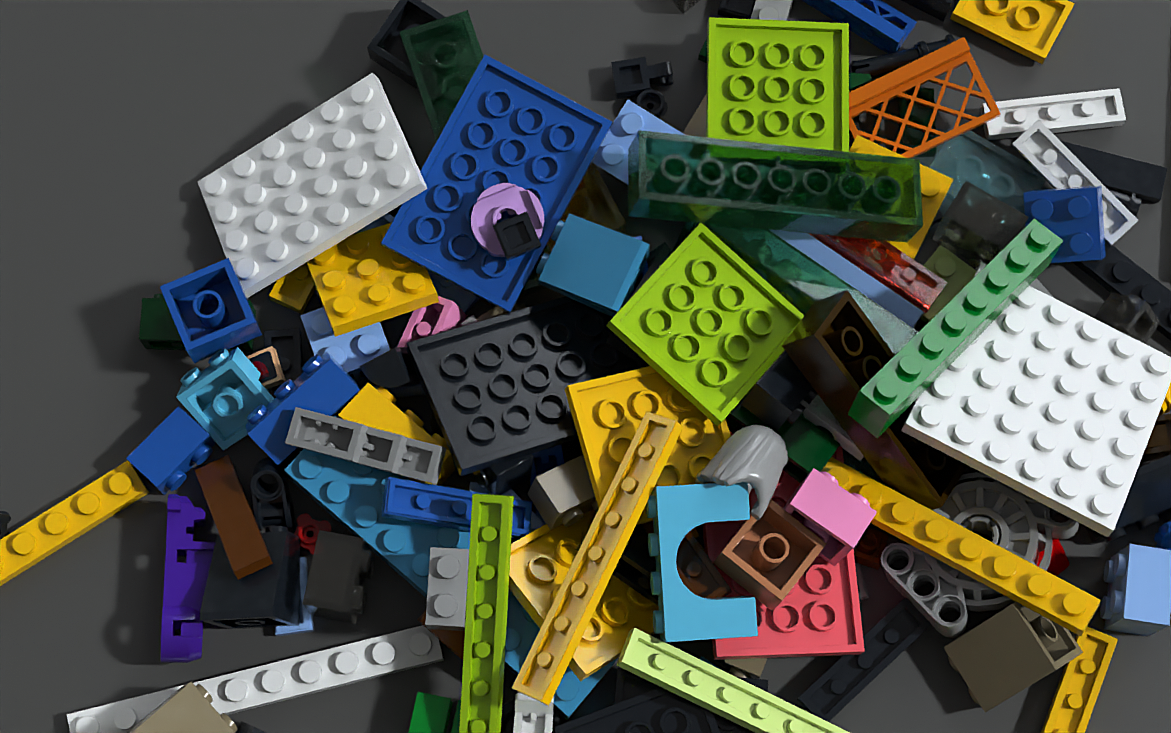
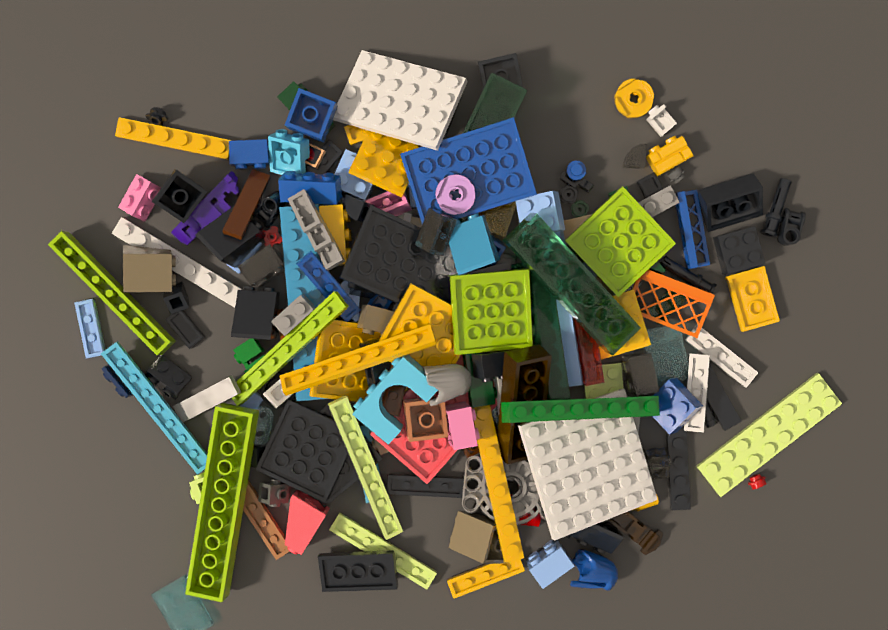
camera: 45 degrees right, 15 degrees up
(70, 660) = (139, 198): none -> bright pink bracket
(127, 590) = (179, 196): none -> black slope
(393, 649) = (254, 313): none -> black slope
(517, 236) = (451, 205): black tile -> none
(530, 291) = (436, 232): none -> clear smoke brick
(629, 63) = (576, 170): none -> blue plate
(679, 102) = (579, 204): none -> dark green plate

